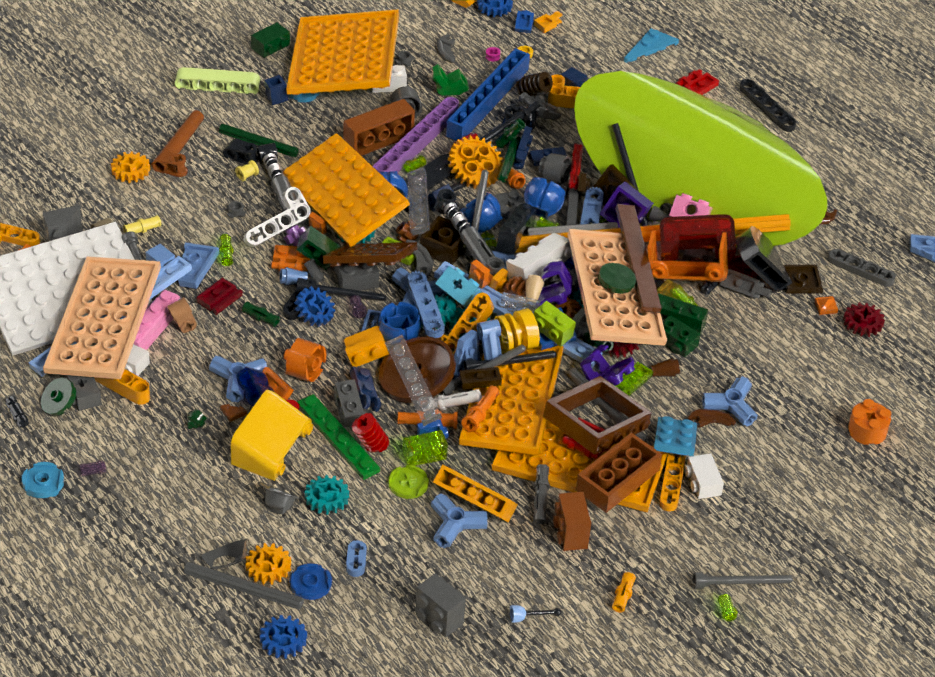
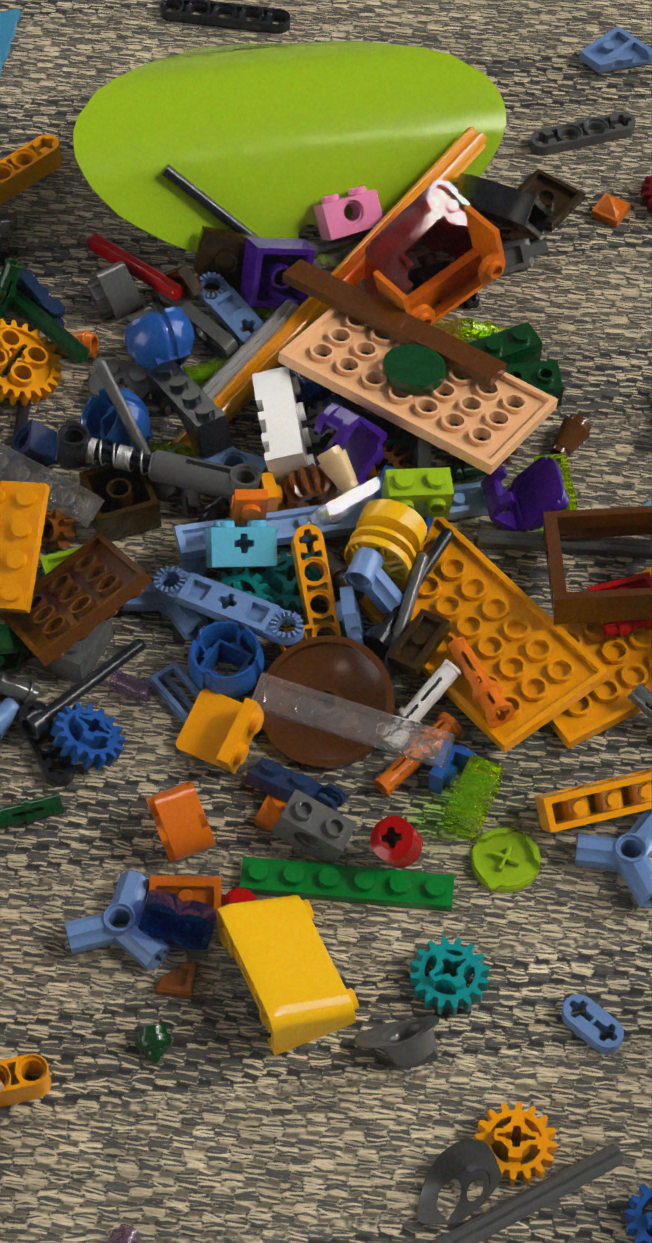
camera: 45 degrees left, 10 degrees up
(310, 581) = (578, 1122): blue tile -> none
(423, 259) = (132, 547): dark grey piece -> none
(537, 155) = (73, 282): dark blue plate -> none
(701, 83) = (122, 48): red plate -> none

